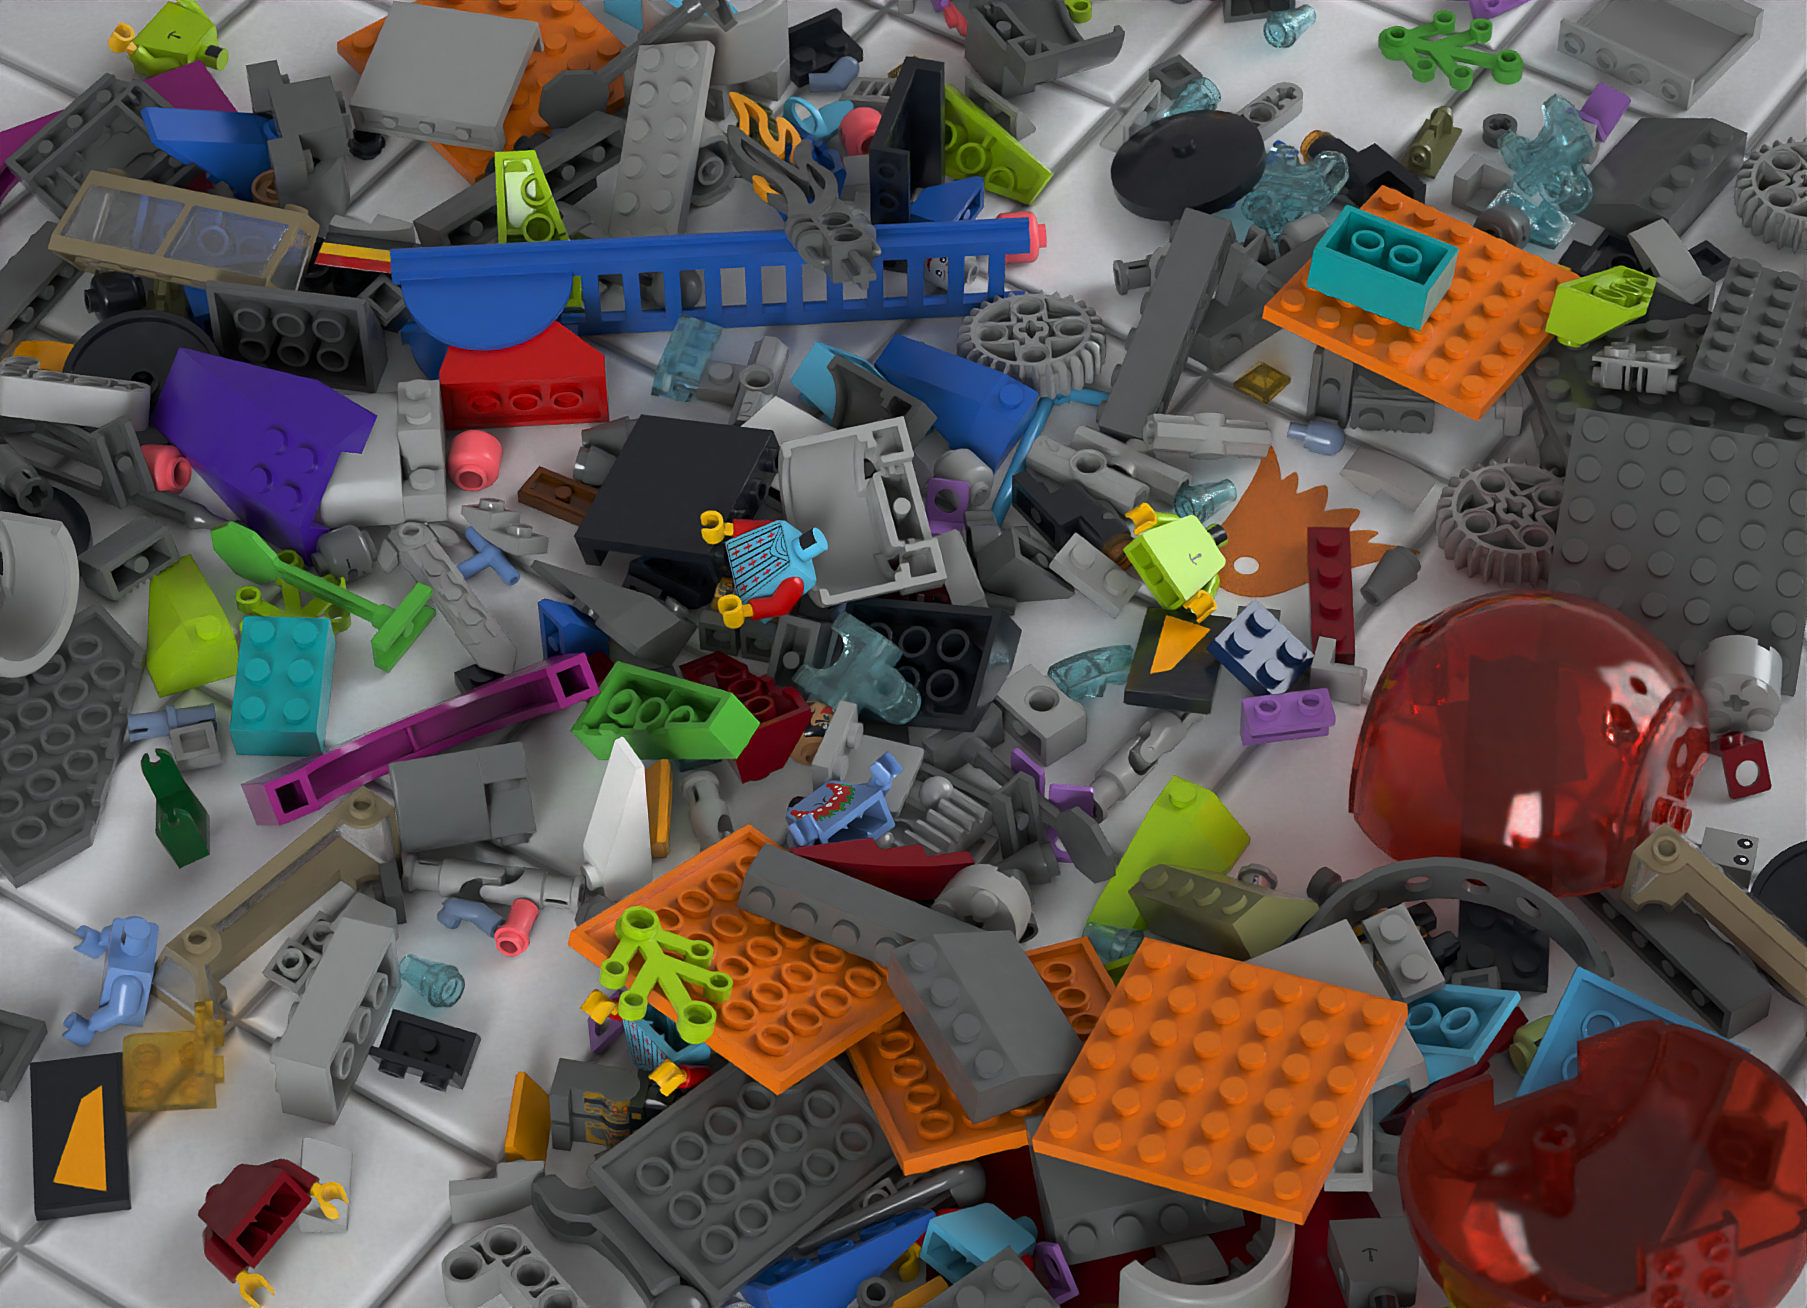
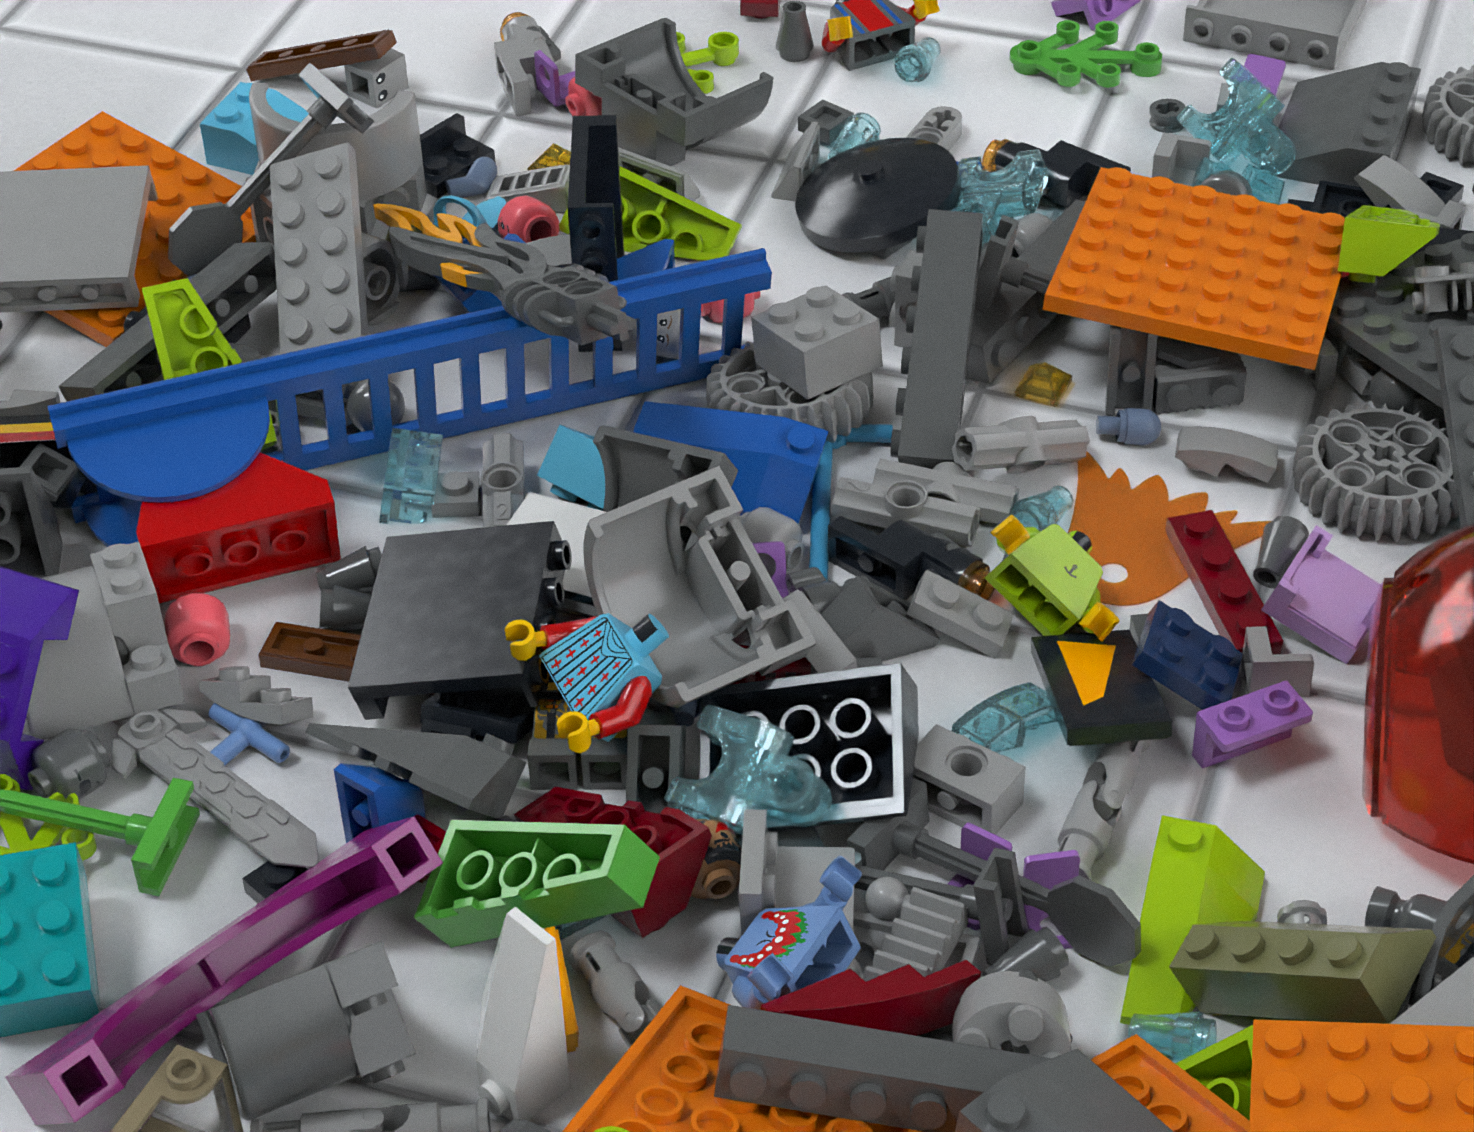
camera: 15 degrees left, 5 degrees down
(1059, 308) = (817, 341): none -> light grey brick
(1382, 267) = (1160, 231): teal brick -> none
(1393, 612) = (1324, 598): none -> lavender piece
(1432, 144) = (1110, 132): olive hinge -> none

